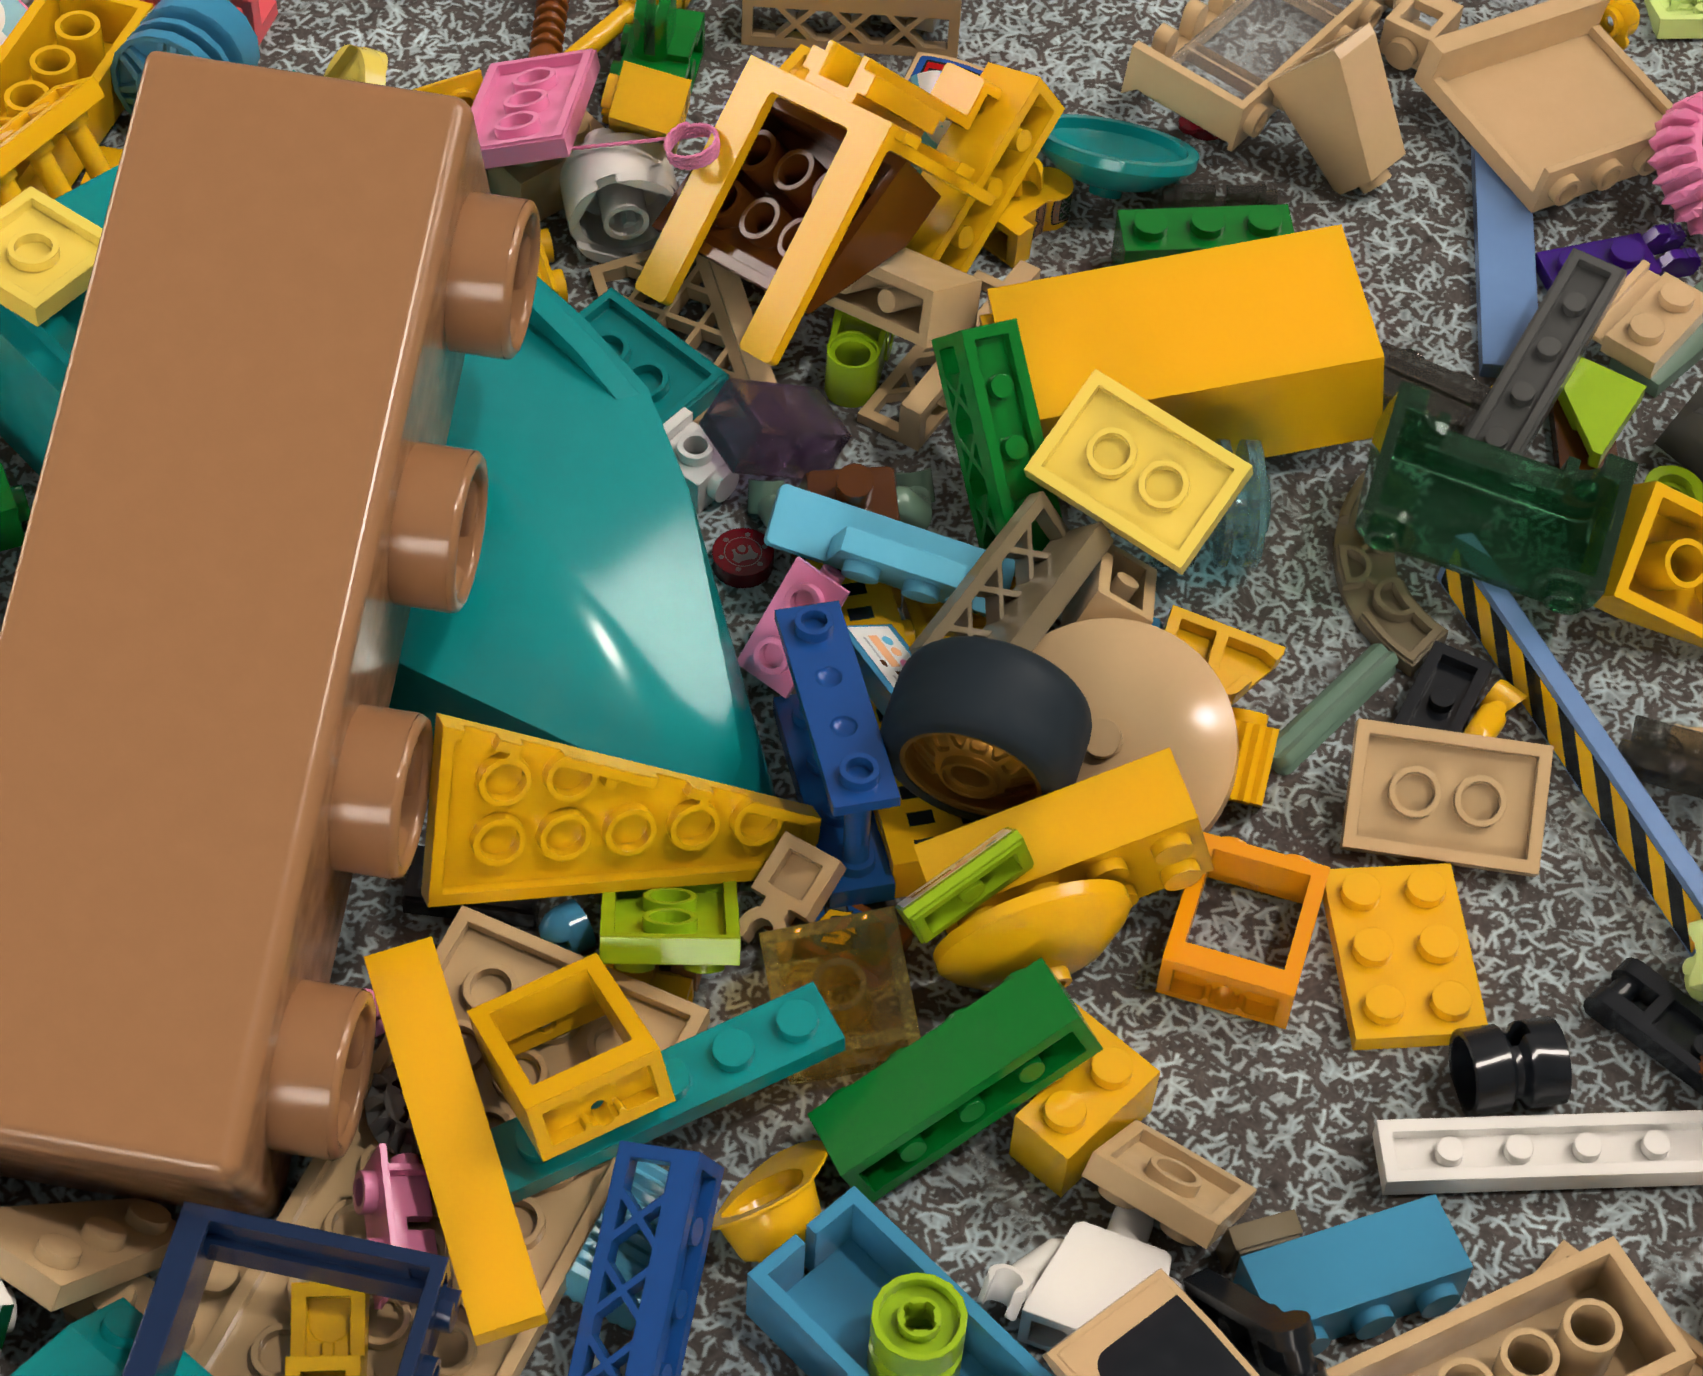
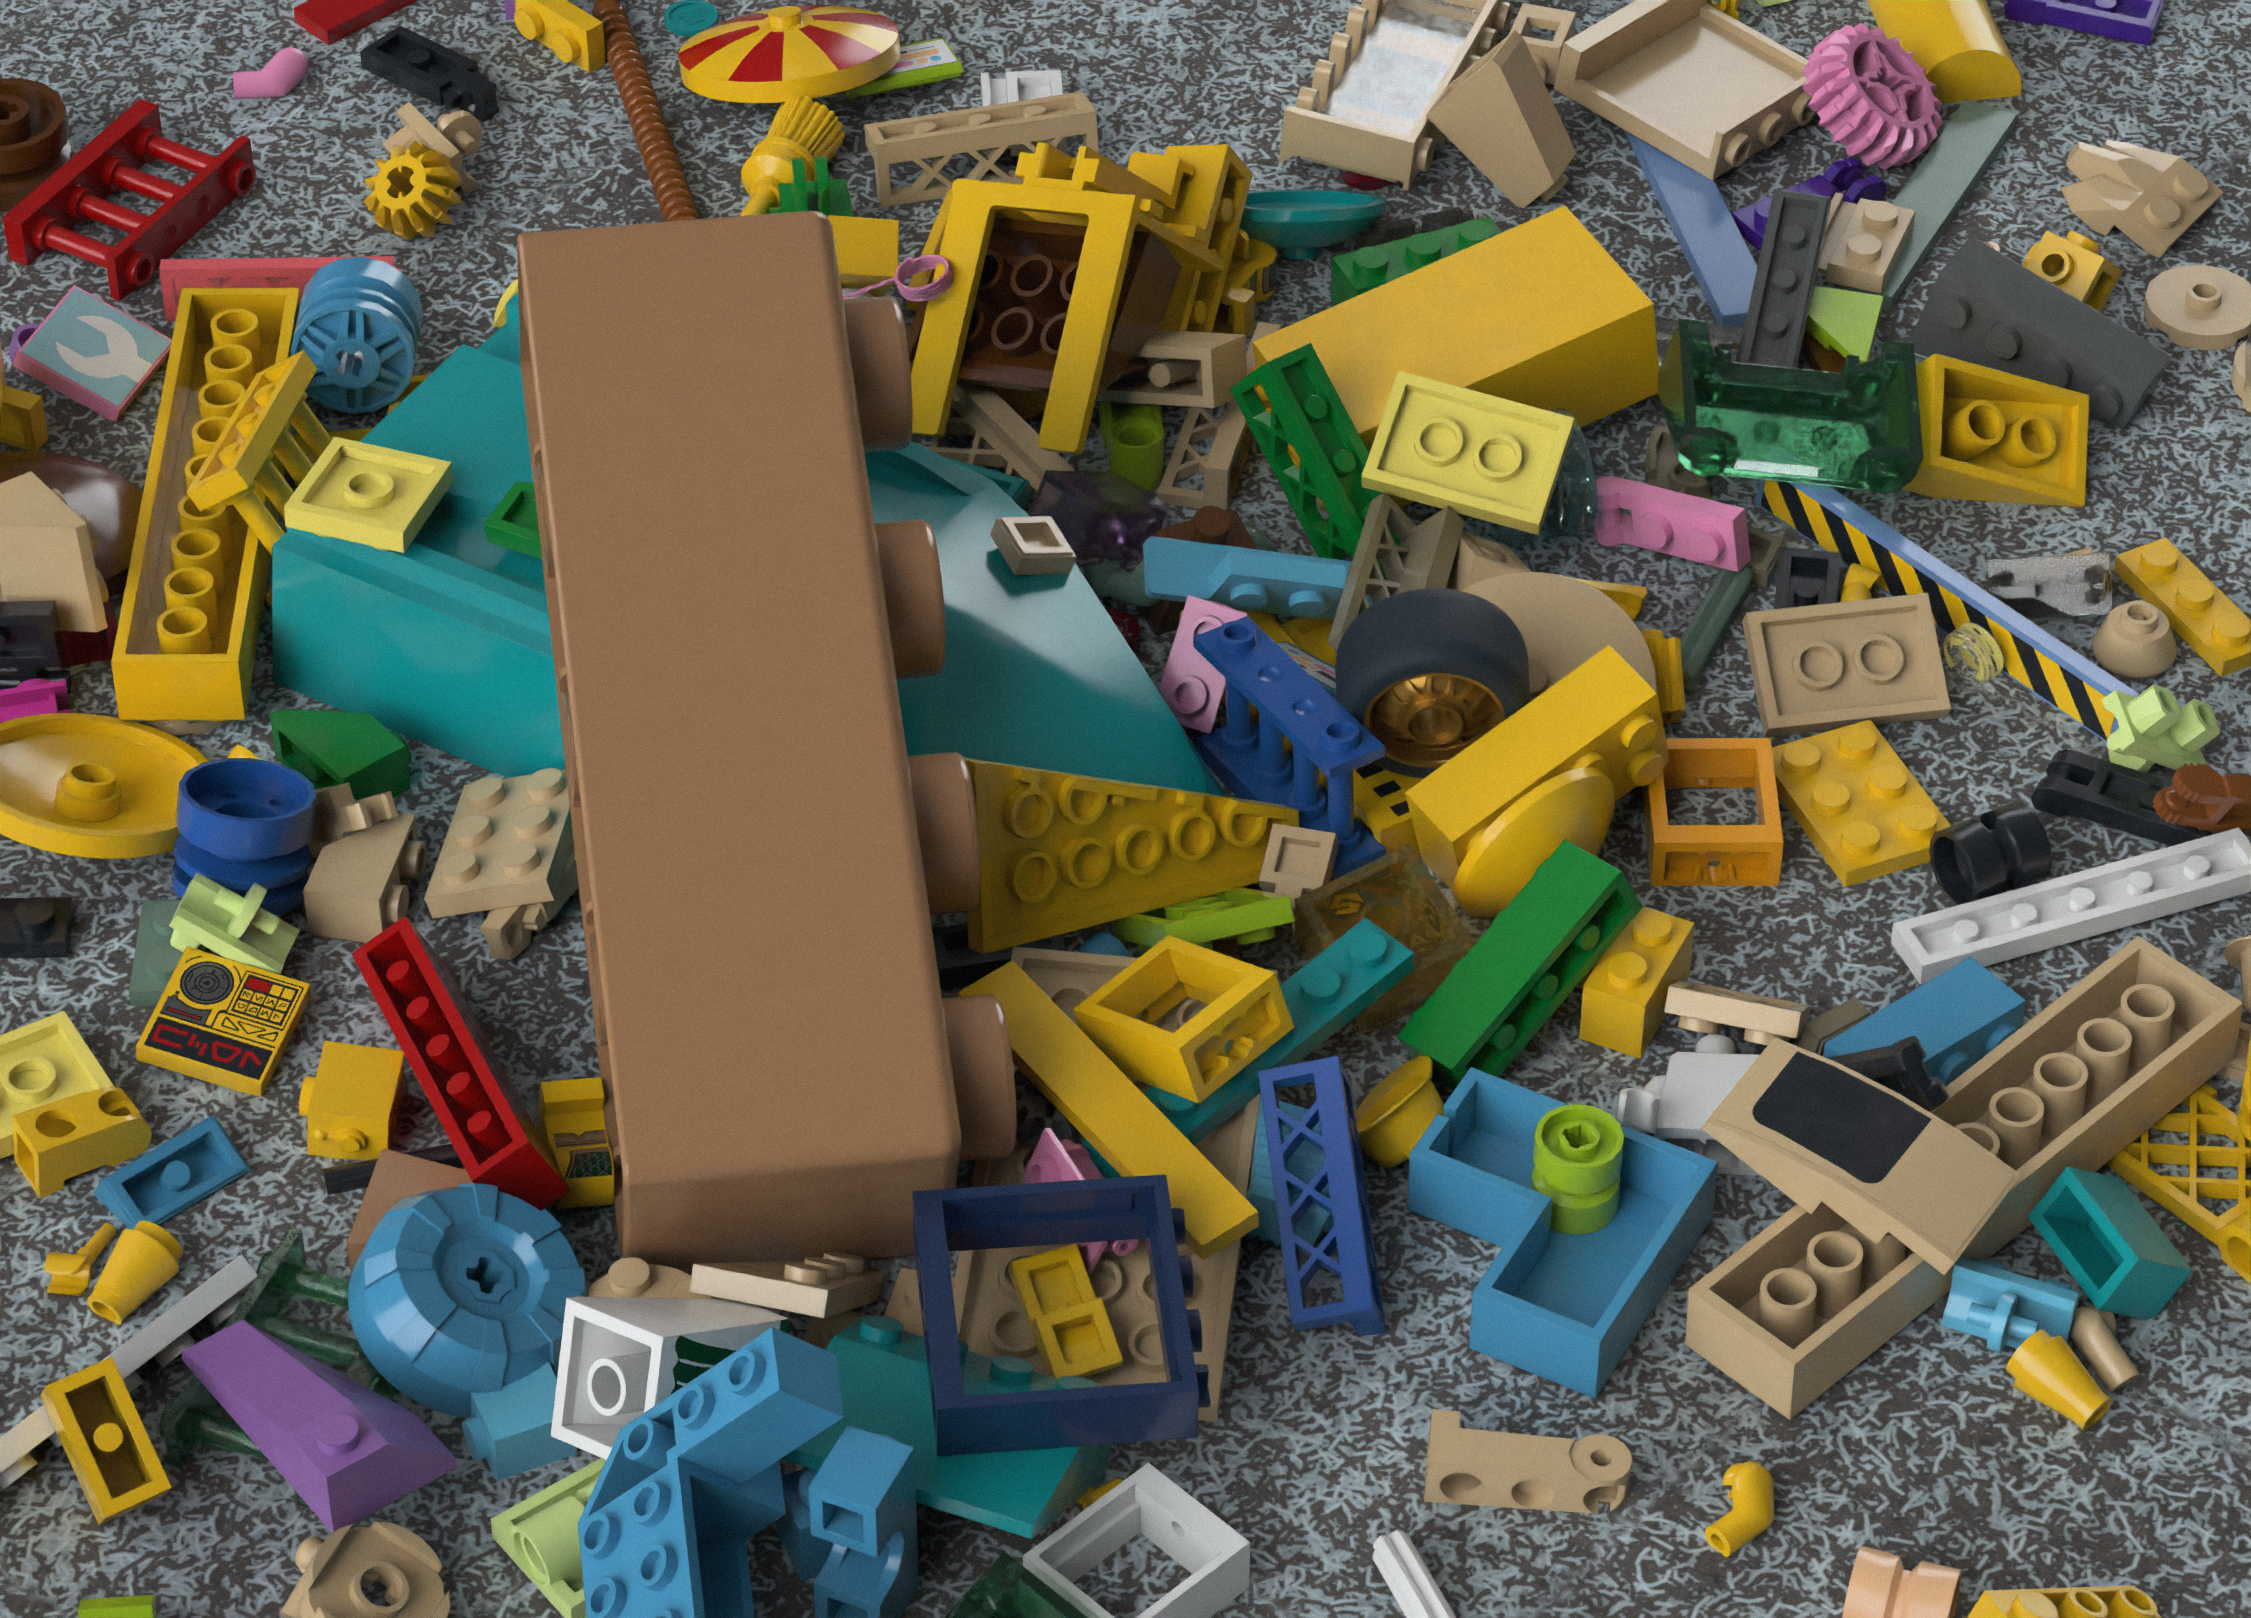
camera: 15 degrees left, 10 degrees down
(650, 472) = (1033, 545): none -> tan tile
(966, 884) = (1470, 804): lime slope -> none
(1332, 585) = (1671, 523): none -> bright pink plate
(1585, 817) = (1973, 653): none -> clear tile

